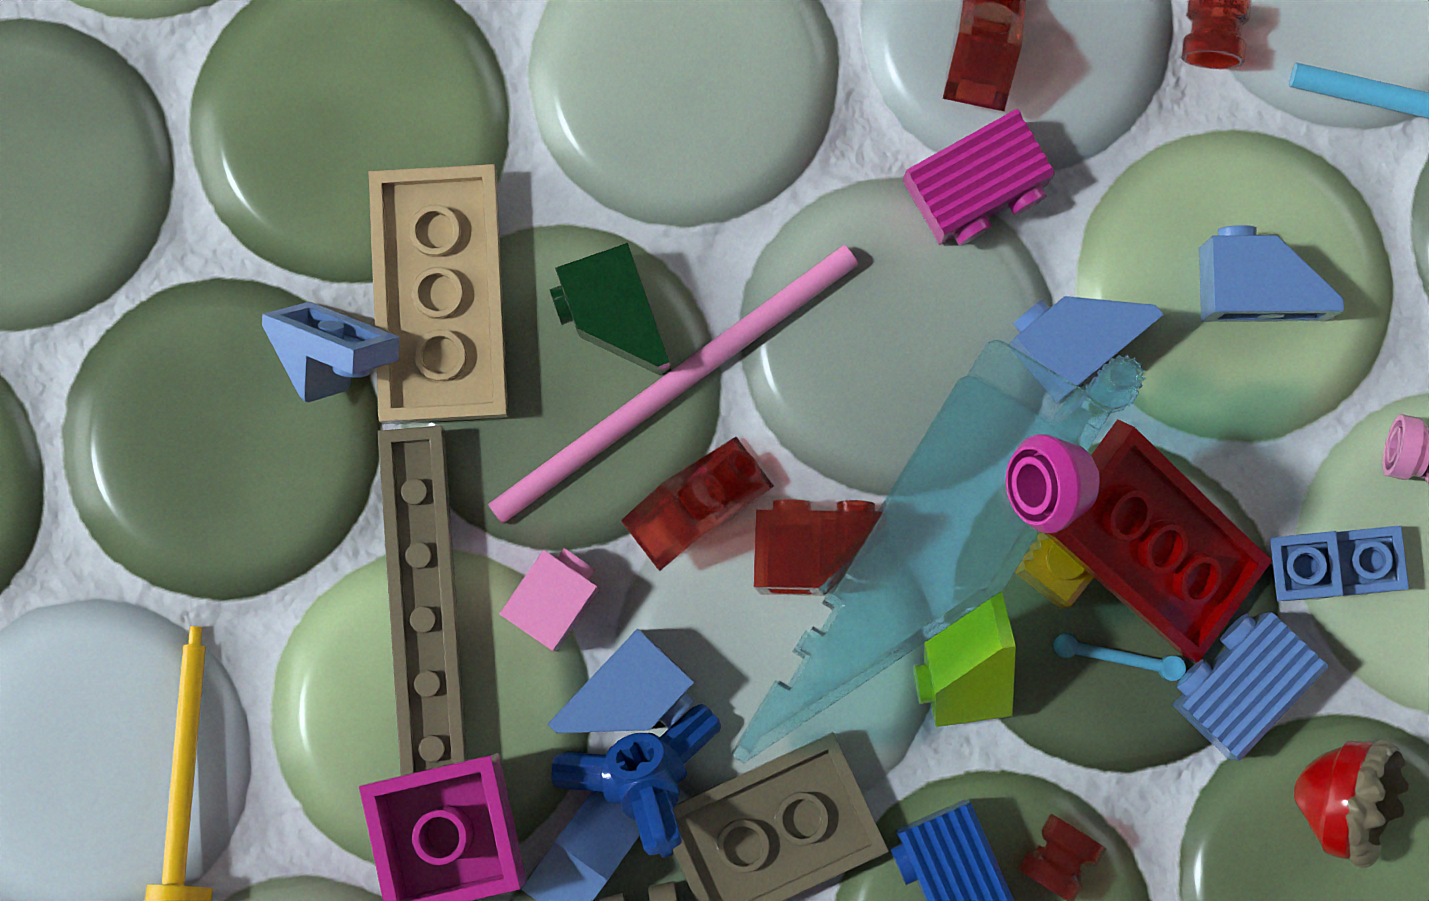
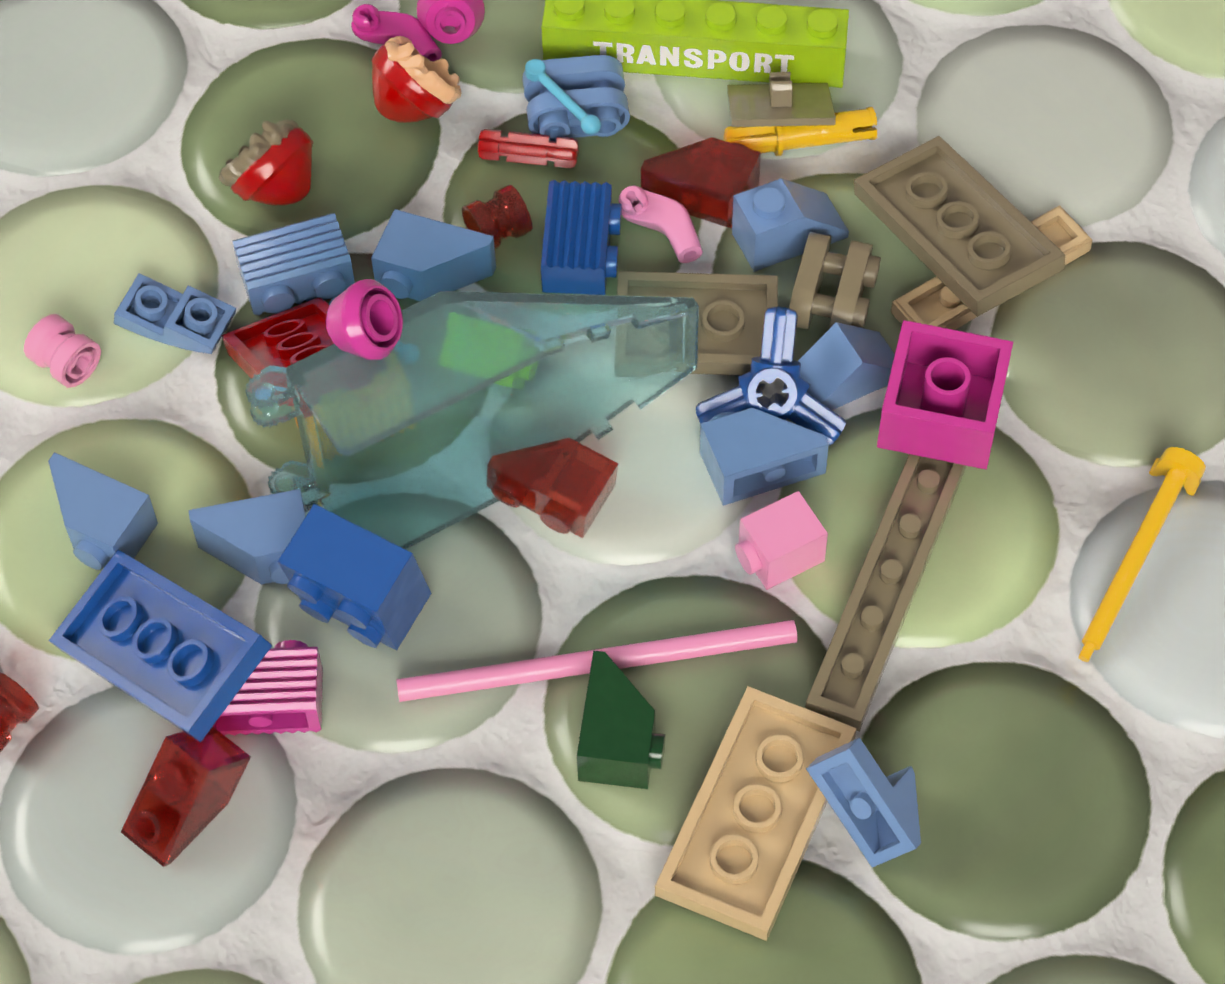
camera: 155 degrees left, 25 degrees down
(696, 503) = (628, 555): clear red slope -> none
(945, 313) = (354, 578): none -> blue brick
(1096, 152) = (160, 644): none -> plate
(1110, 765) = (430, 256): none -> medium blue slope

